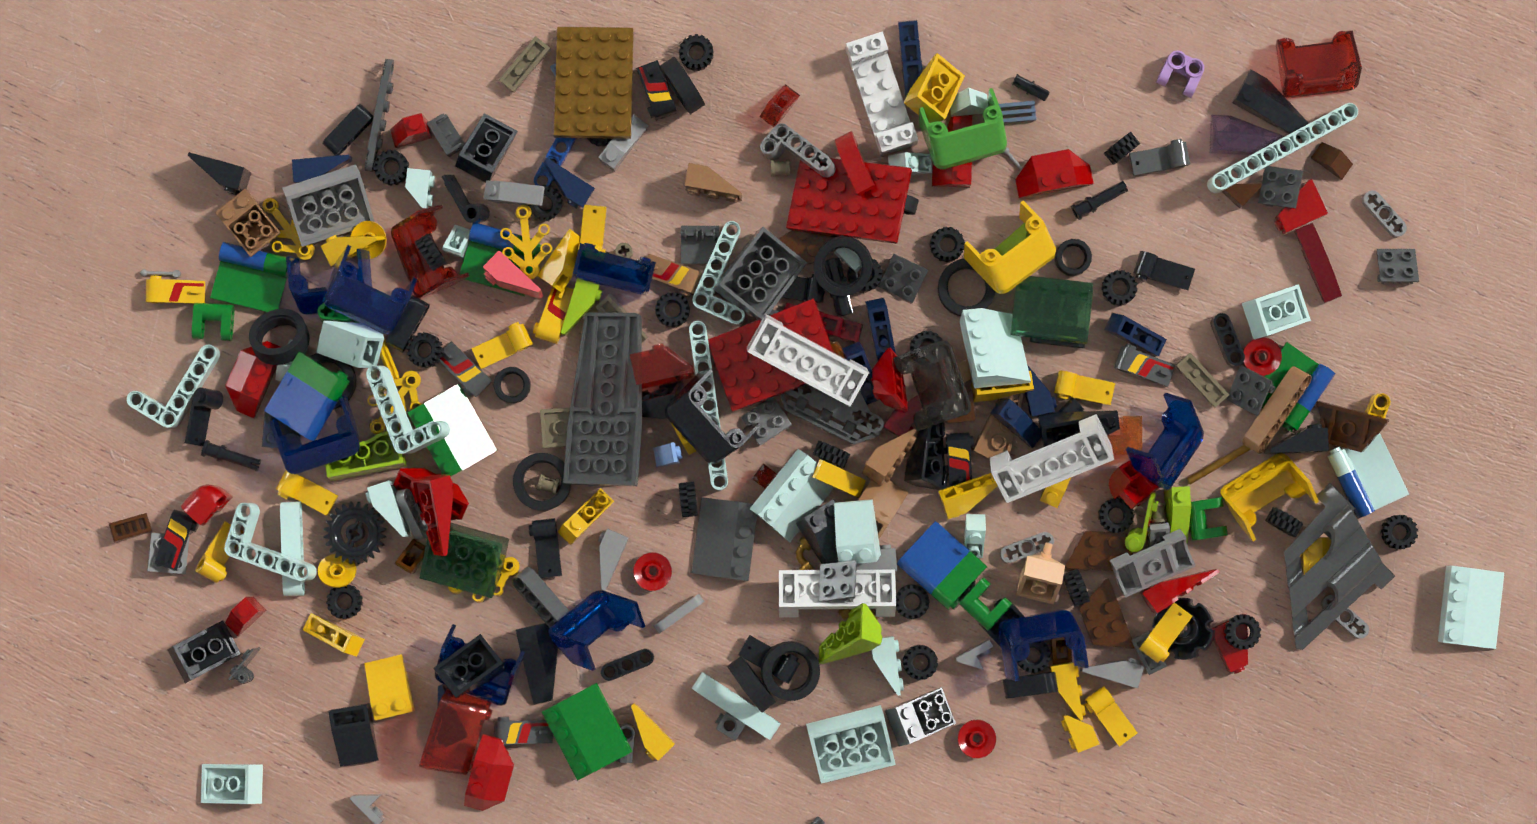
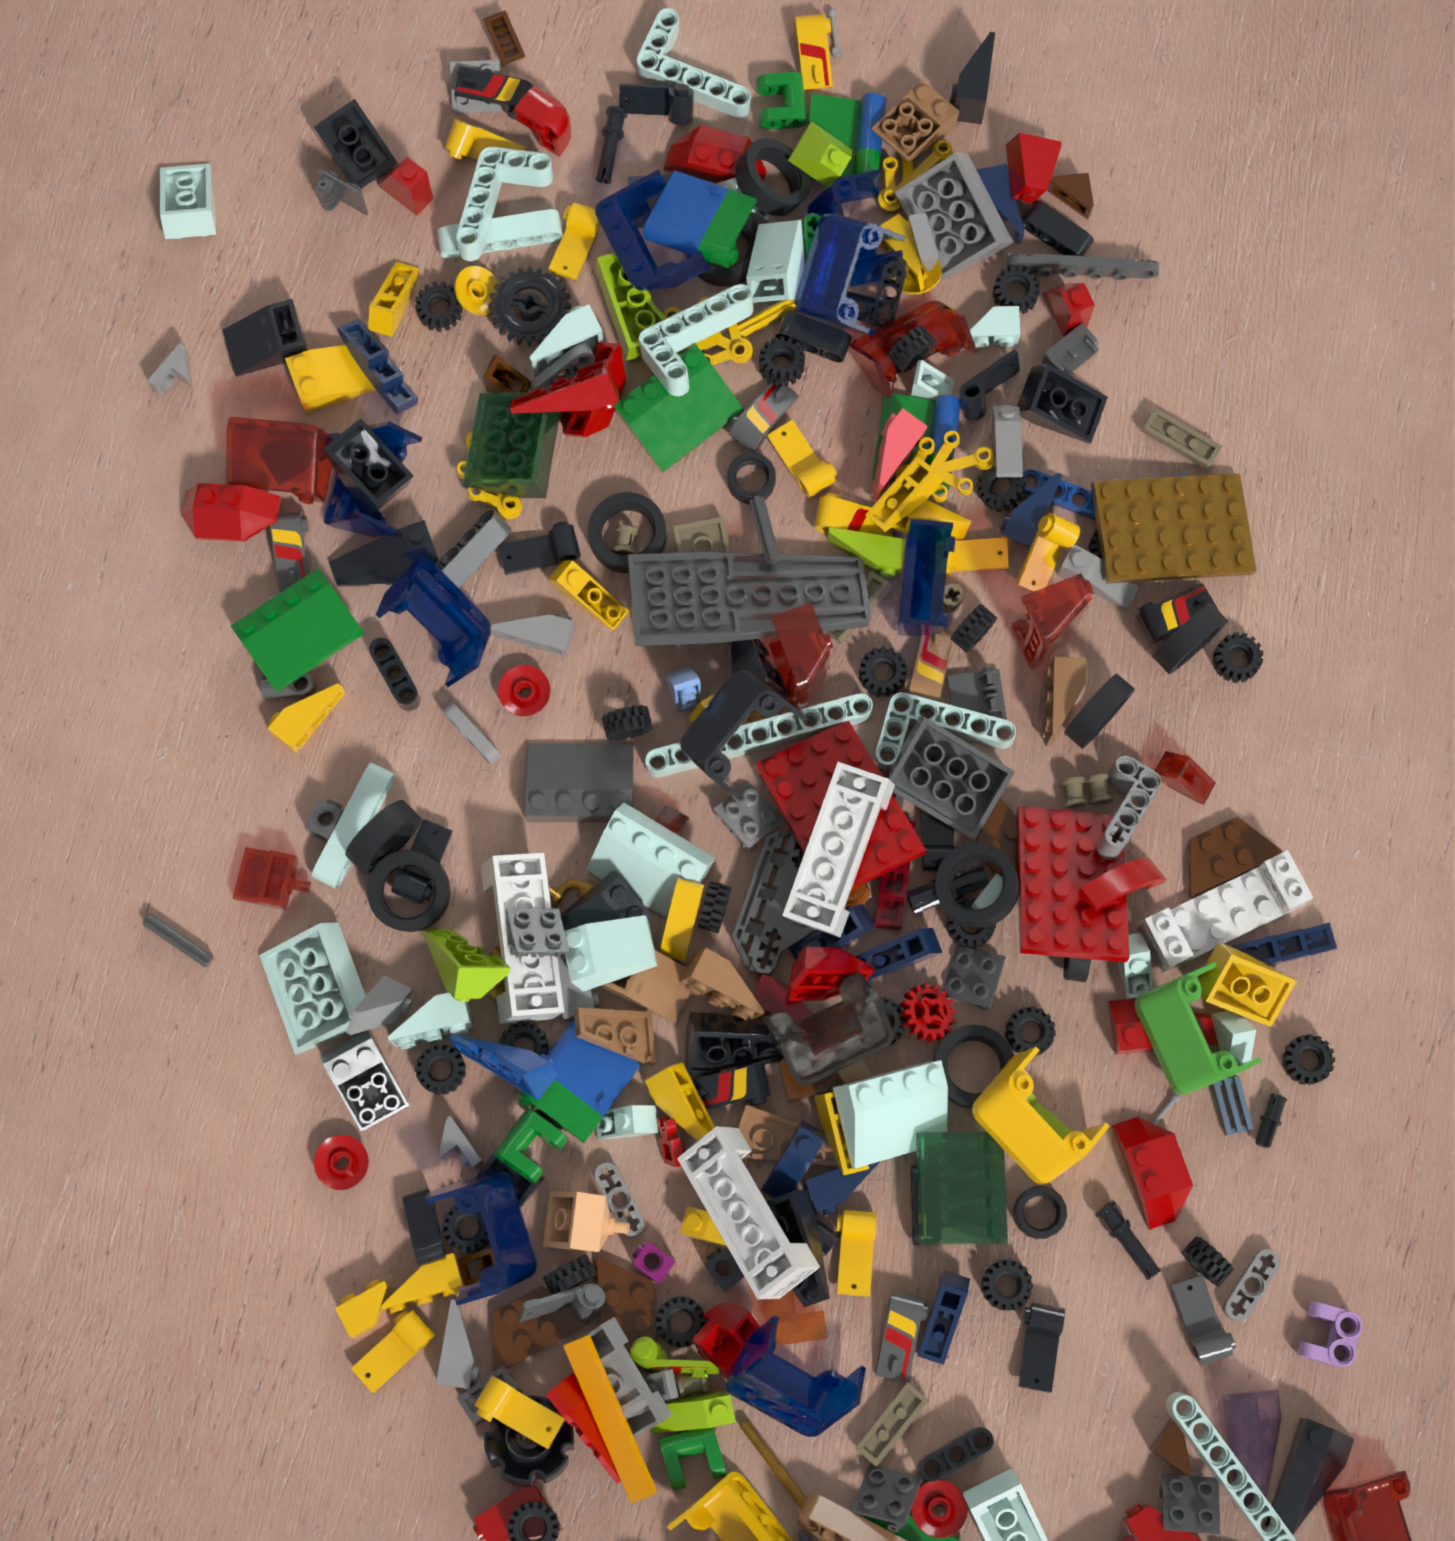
camera: 80 degrees right, 10 degrees down
(265, 297) = (821, 155): none -> lime slope
(297, 141) = (1031, 165): none -> red slope
(319, 110) = (1074, 192): none -> reddish brown slope
(347, 230) = (924, 240): none -> light grey slope
(386, 653) = (376, 366): none -> dark blue slope
(391, 274) = (875, 305): none -> black beam
(548, 275) = (905, 494): none -> yellow slope
(556, 380) = (764, 529): none -> dark grey axle
(600, 179) = (1050, 538): none -> yellow door
(650, 239) = (973, 628): none -> black tyre
(657, 183) = (1051, 617): none -> clear red windscreen
(727, 159) = (1099, 711): none -> black tyre
(767, 771) = (268, 878): none -> clear red plate
(779, 186) = (1074, 792): none -> dark tan bush
(837, 85) = (1225, 854): none -> reddish brown wing
(872, 697) = (381, 1006): none -> light grey slope
(911, 532) = (618, 1031): none -> medium nougat wing
(925, 314) = (927, 1012): none -> red gear
(930, 605) = (515, 1065): none -> blue wedge
(991, 65) = (1324, 1054): none -> black tyre
(996, 506) = (670, 1144): none -> red plate
(1079, 523) = (659, 1273): none -> magenta brick
(1093, 480) = (730, 1280): none -> black brick
(1095, 580) = (583, 1302): none -> dark grey door
(1126, 114) = (1234, 1298): none -> light grey beam
(1176, 571) = (610, 1418): none -> light orange tile

